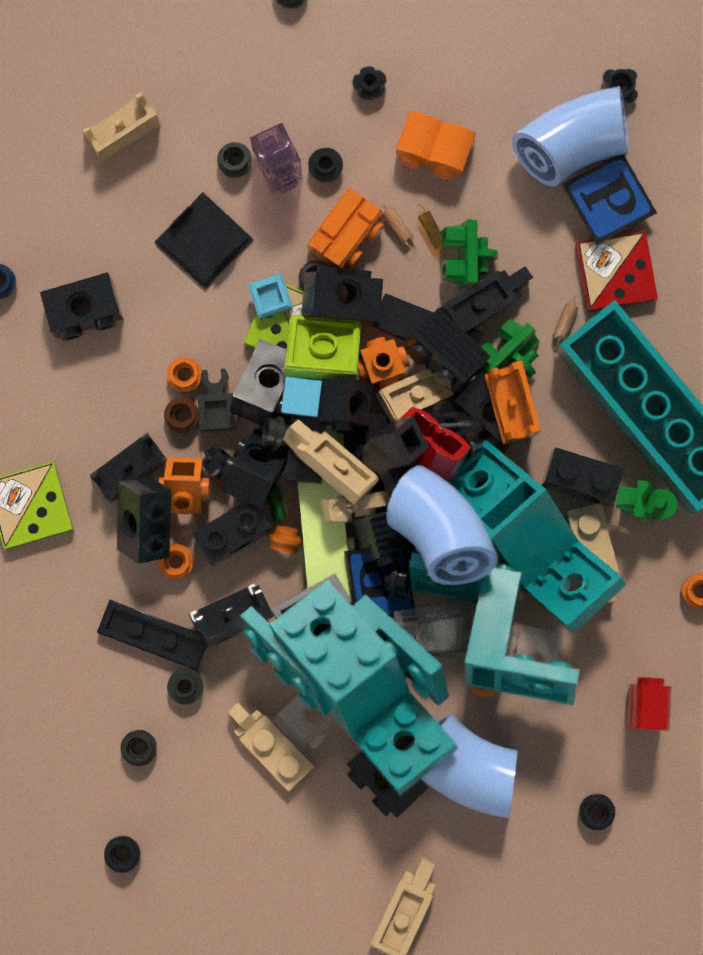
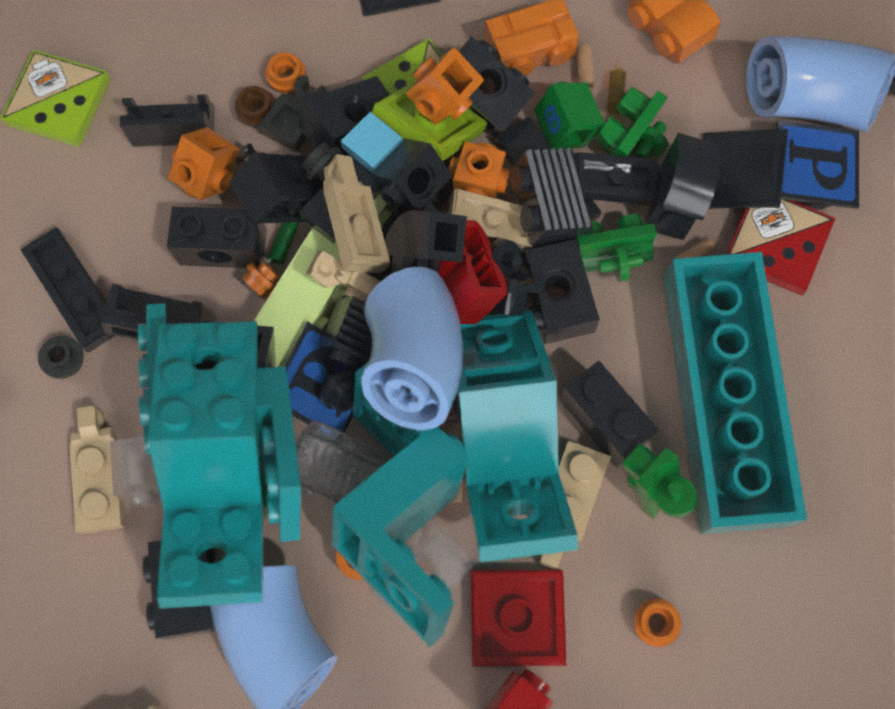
camera: 35 degrees right, 10 degrees down
(143, 519) = (138, 165): black brick -> none
(184, 570) = (138, 226): orange plate -> none
(270, 296) = (414, 48): medium azure tile -> none
(327, 327) = (444, 86): none -> orange brick
(414, 276) = (569, 115): none -> green brick
(512, 403) = (583, 285): orange hinge -> none
(533, 279) = (687, 186): none -> black brick
(559, 236) = (749, 168): none -> black piece
(610, 648) = (518, 618): none -> red tile

